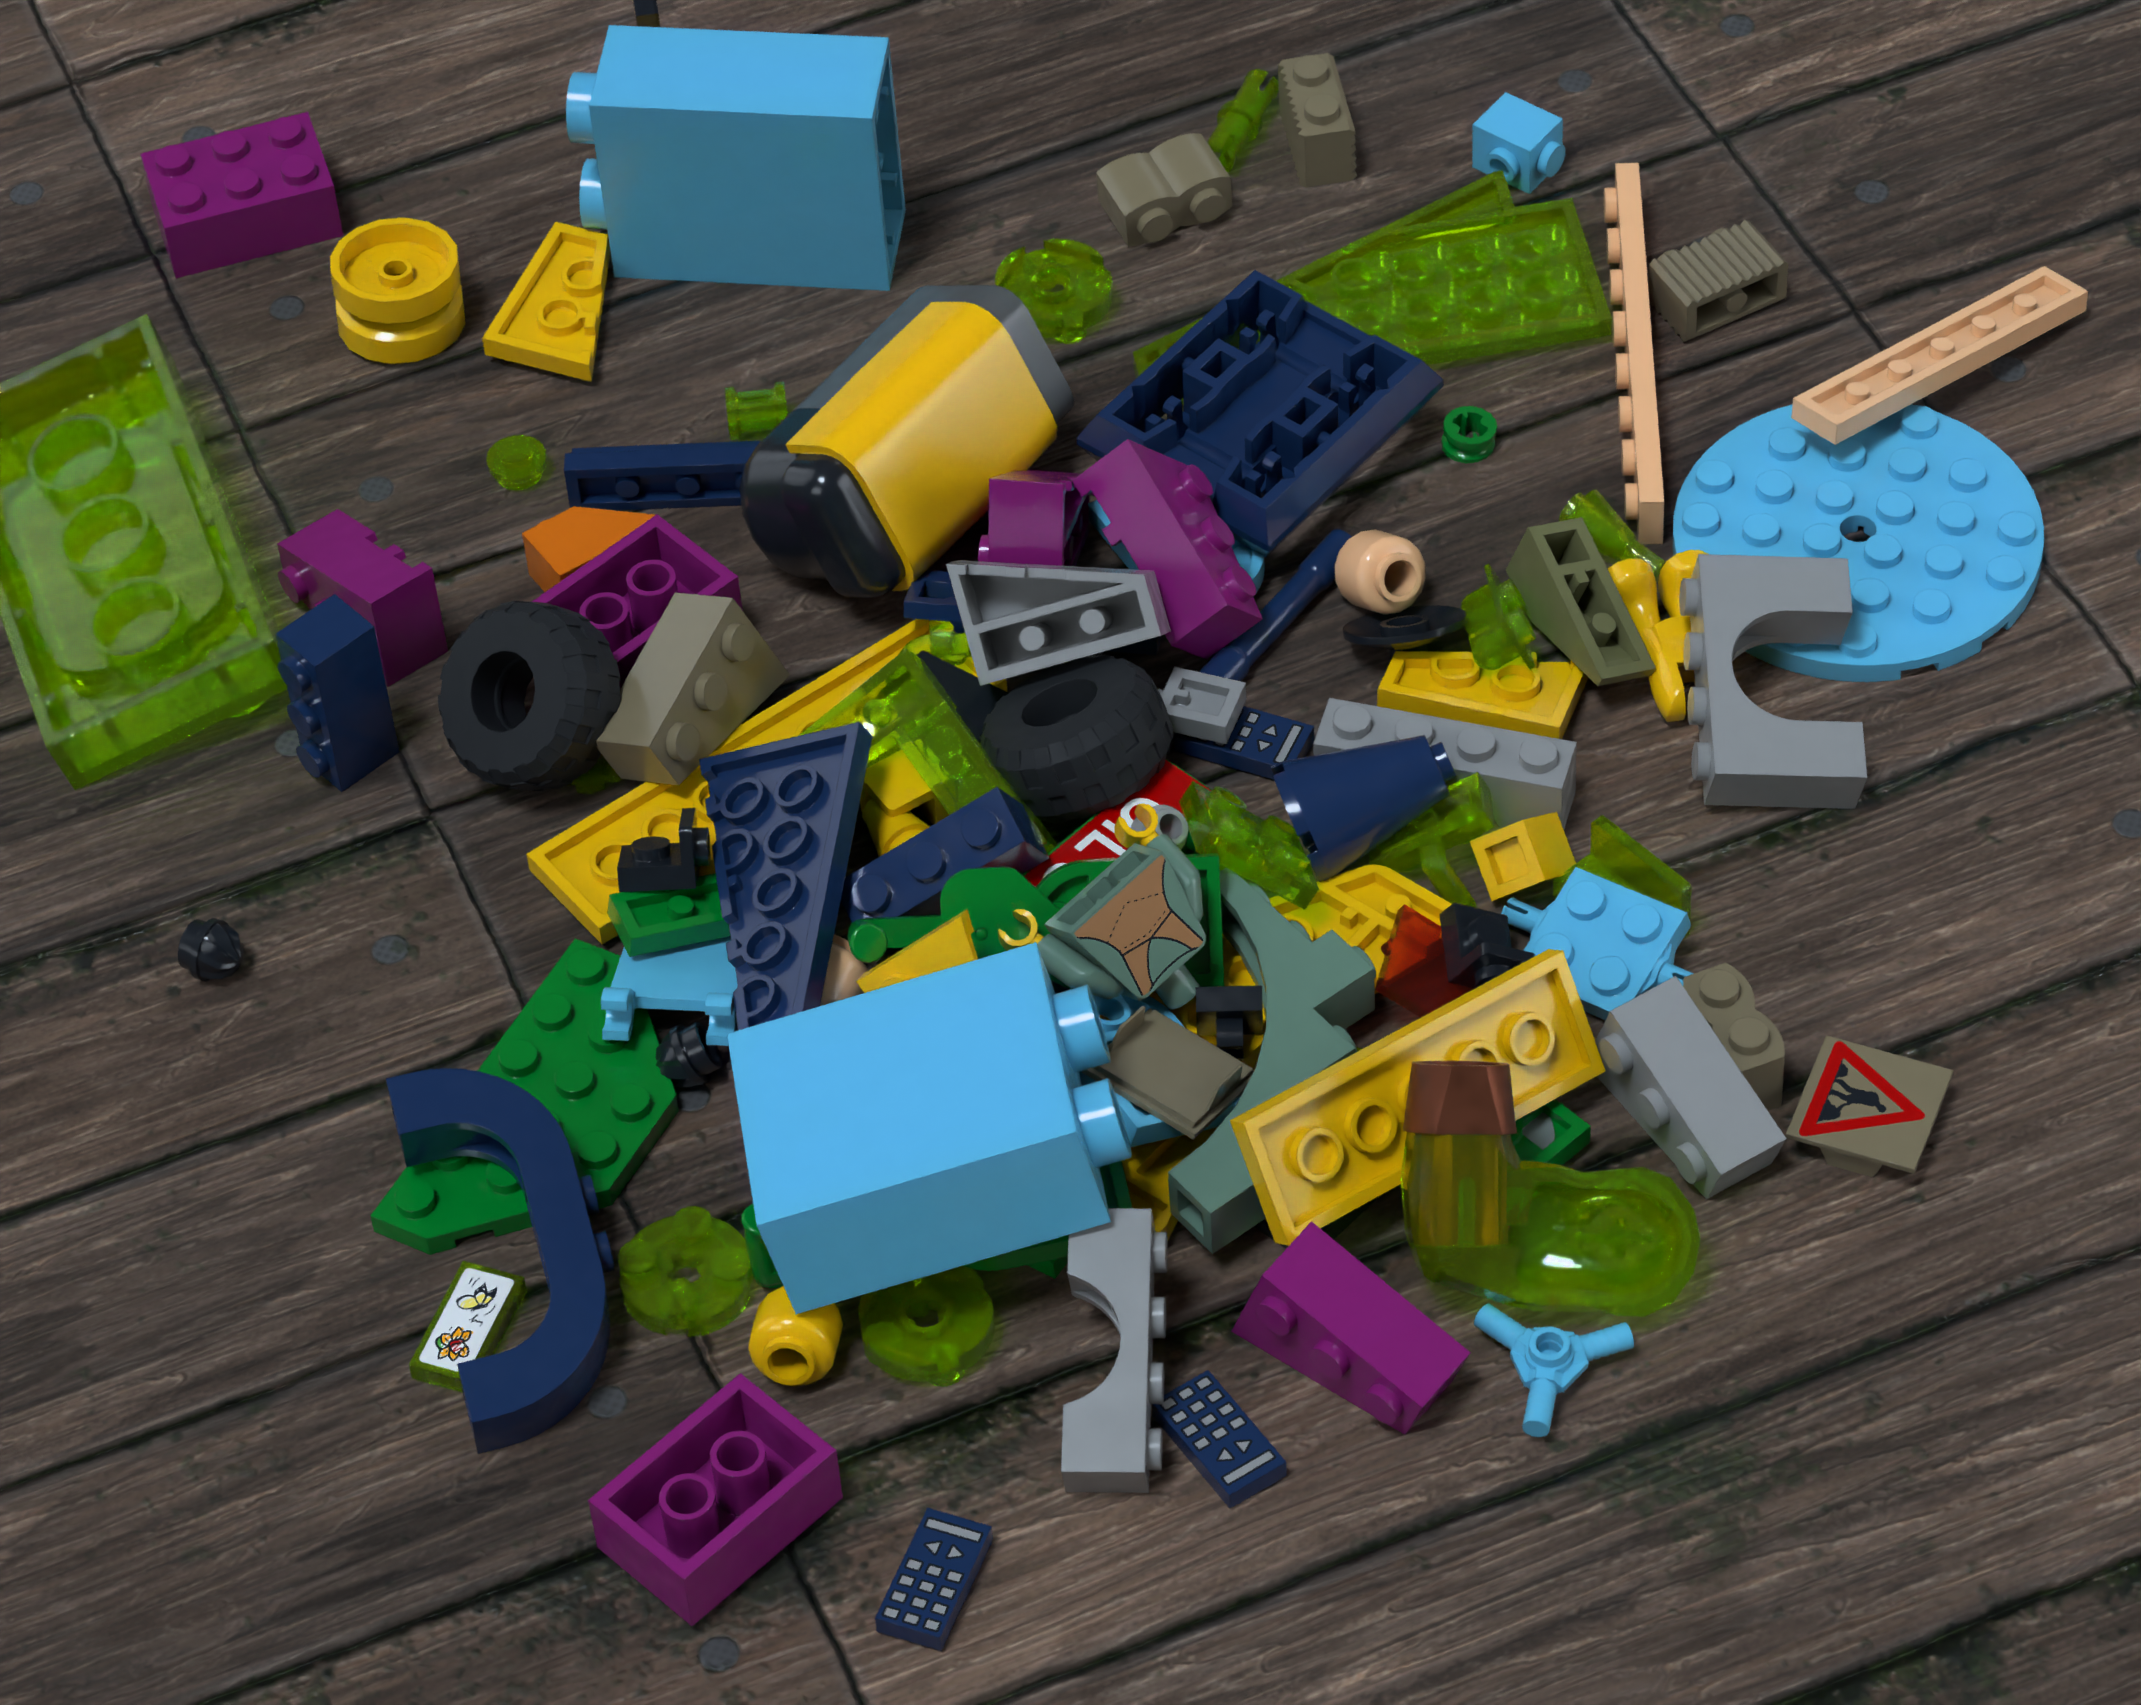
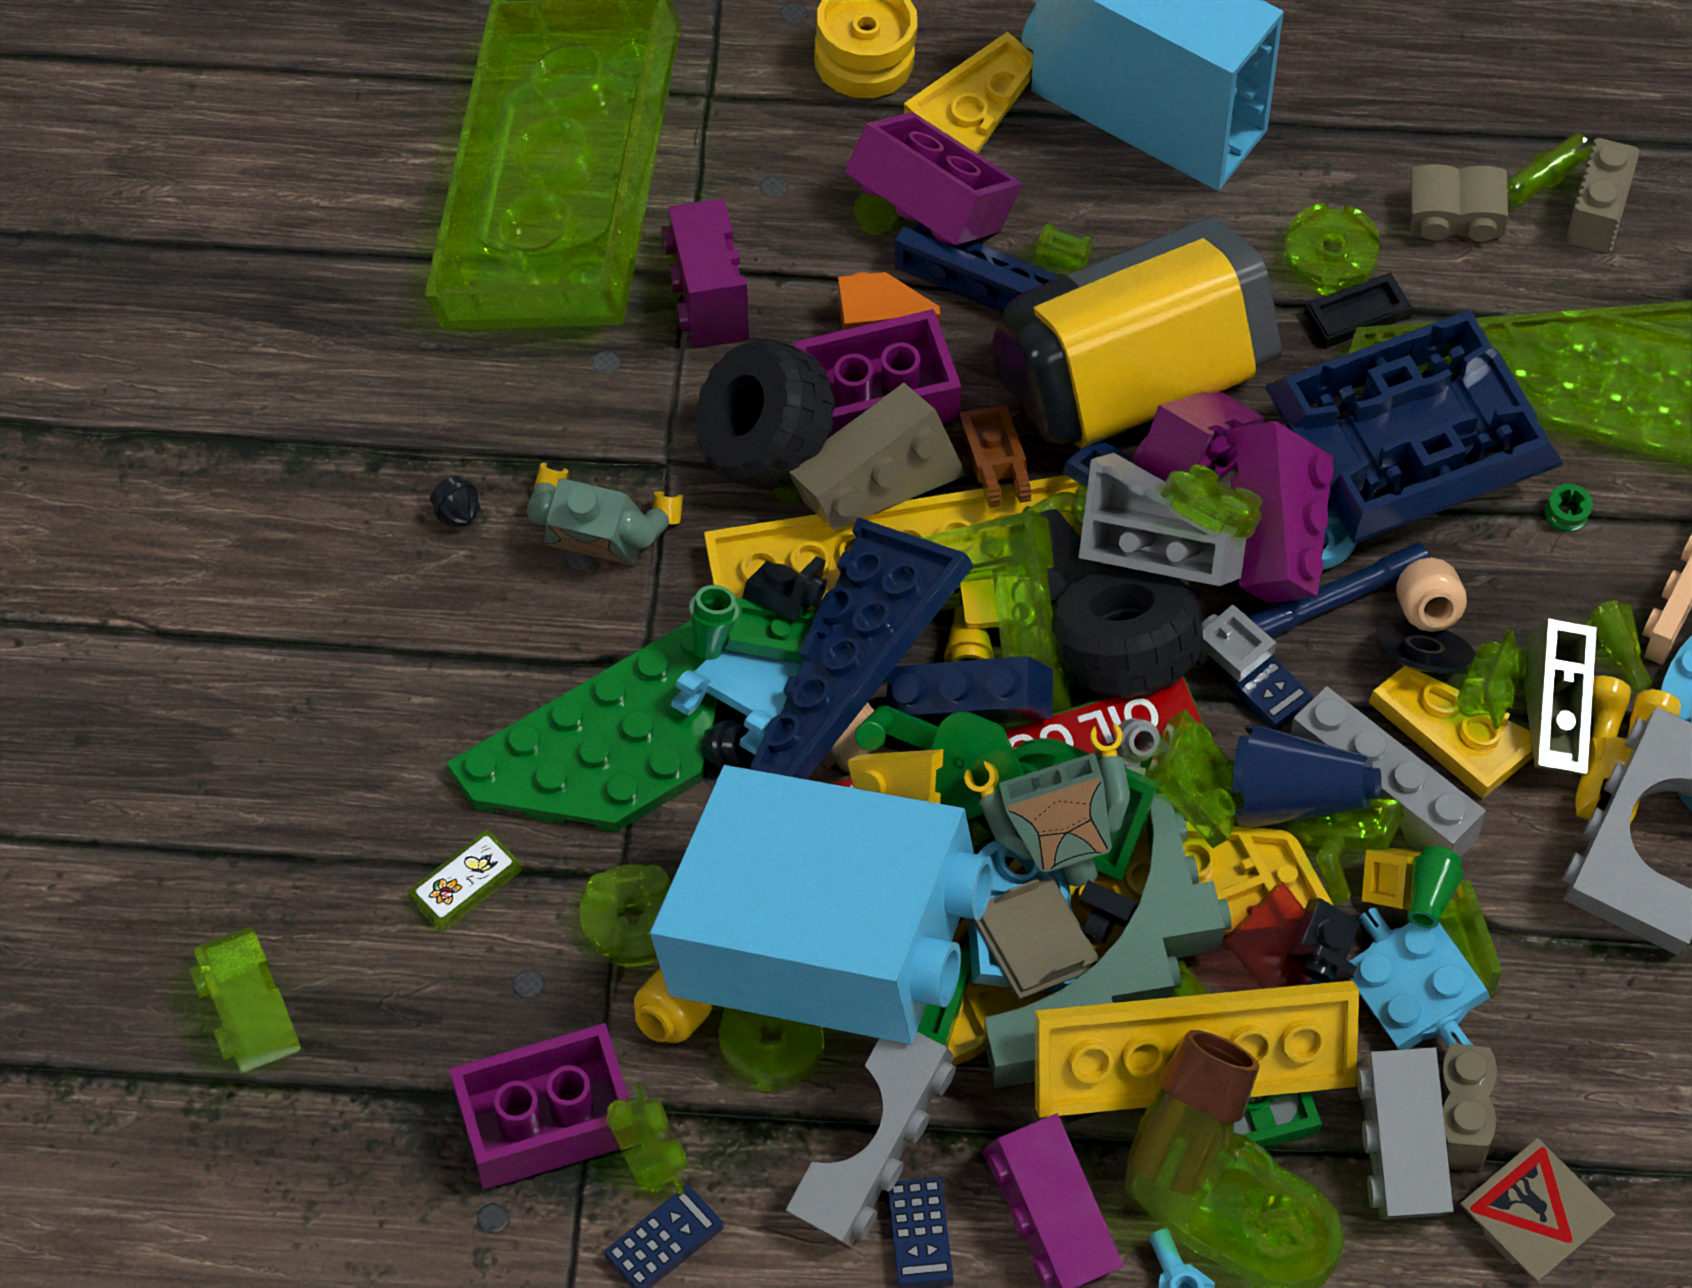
camera: 25 degrees right, 10 degrees up
(303, 1566) = (246, 1000): none -> clear neon green brick
(337, 693) = (632, 349): dark blue brick -> none
(390, 890) = (597, 518): none -> sand green torso
(493, 1119) = (506, 942): dark blue arch -> none
(568, 393) = (932, 178): none -> magenta brick
(603, 920) = (712, 619): none -> green cone
(815, 635) = (995, 452): none -> dark orange hinge
(848, 1454) = (645, 1124): none -> clear neon green hinge
(1106, 348) = (1361, 305): none -> black tile
(1116, 556) = (1211, 503): none -> clear neon green plate
(1567, 831) = (1434, 882): none -> green cone

